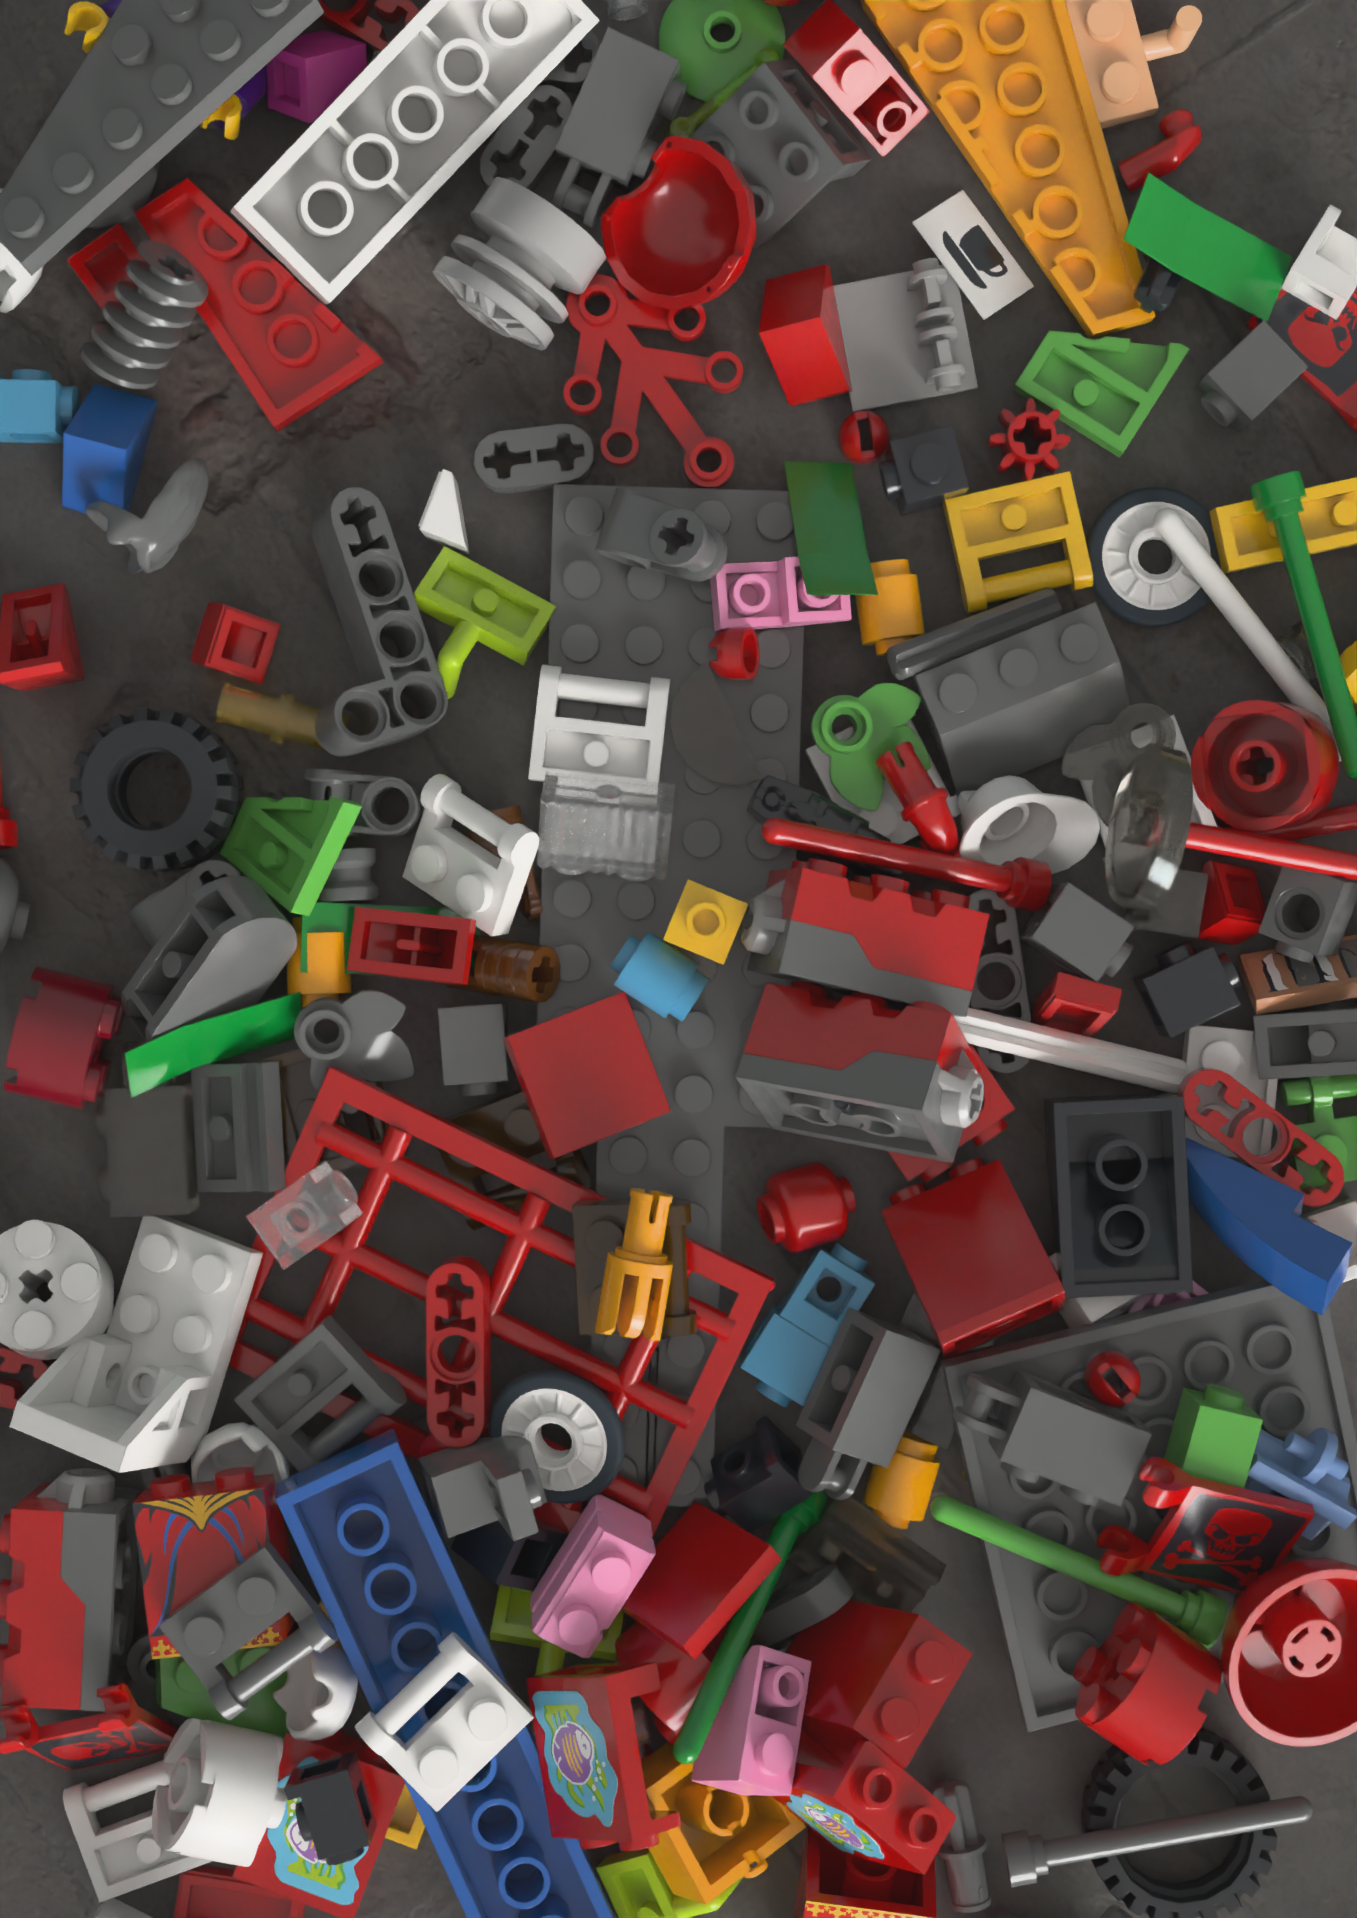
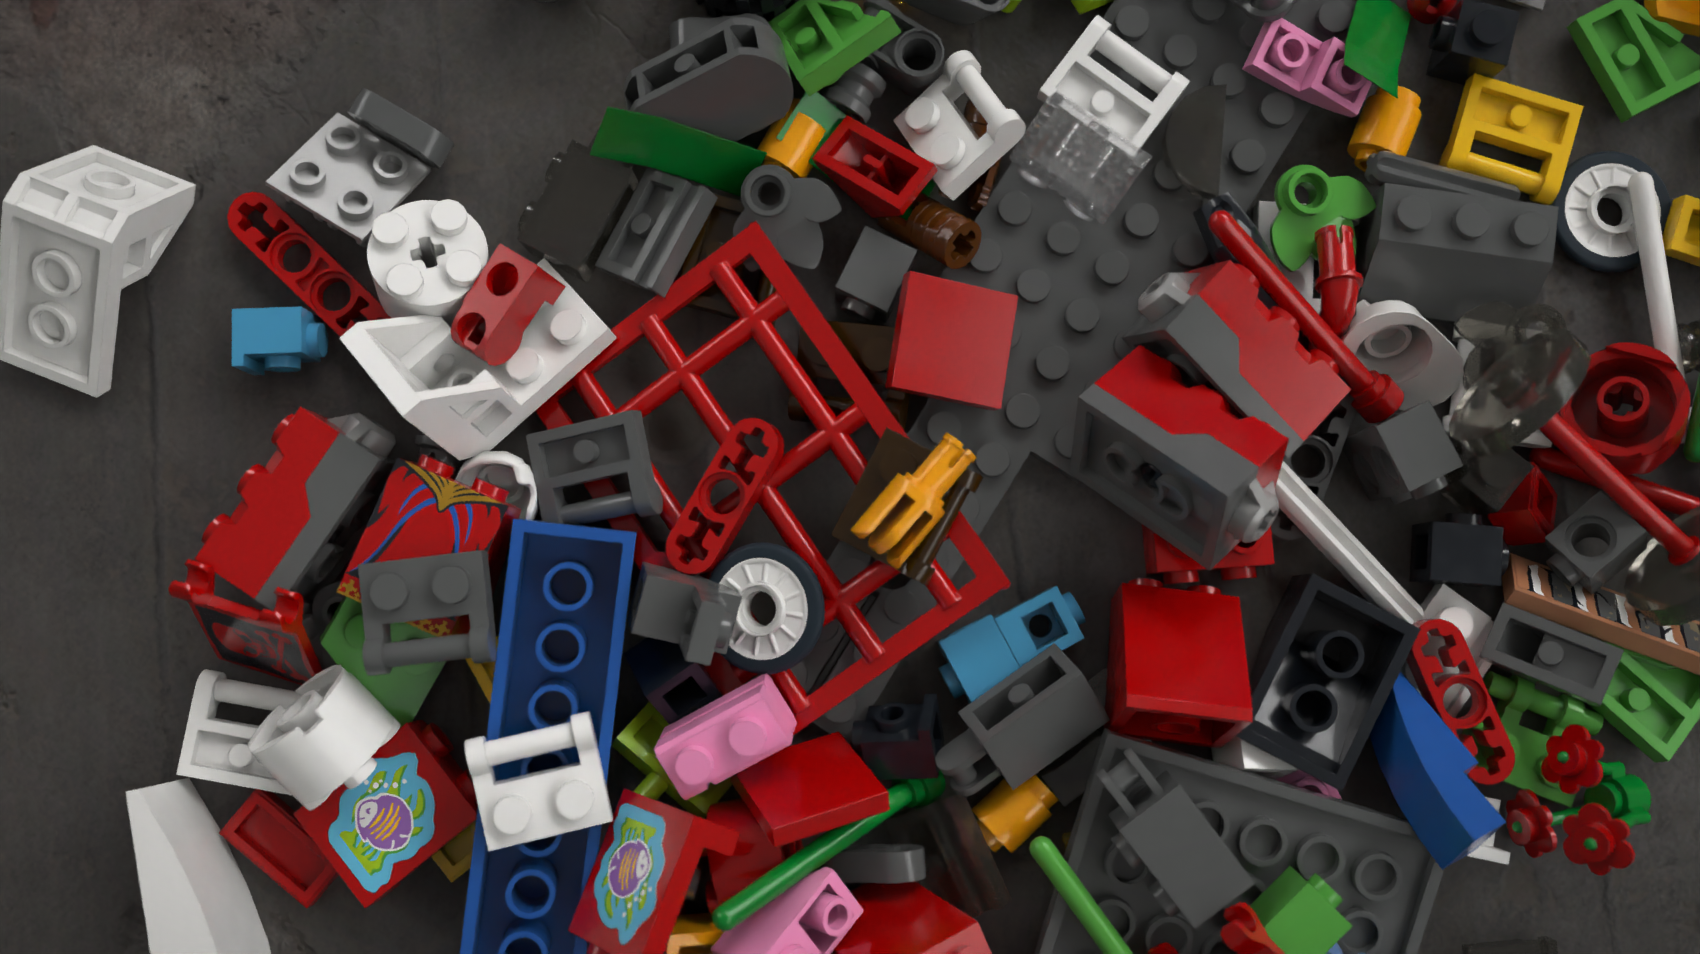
camera: 25 degrees right, 5 degrees down
(62, 1039) = (563, 83): dark red brick -> none
(138, 1292) = (502, 306): none -> red leg
(306, 1214) = (670, 318): clear brick -> none
(318, 1694) = (452, 703): white hair -> none
(333, 1807) = (406, 803): black brick -> none
(659, 976) = (1052, 298): dark azure brick -> none
(705, 922) = (1114, 275): yellow brick -> none
(736, 653) = (1253, 90): red hinge -> none
(805, 1207) = (1059, 549): red head -> none
(1041, 428) = (1562, 66): red gear -> none
(1075, 1005) = (1374, 507): red tile -> none
(1102, 1390) = (1228, 826): red hinge -> none

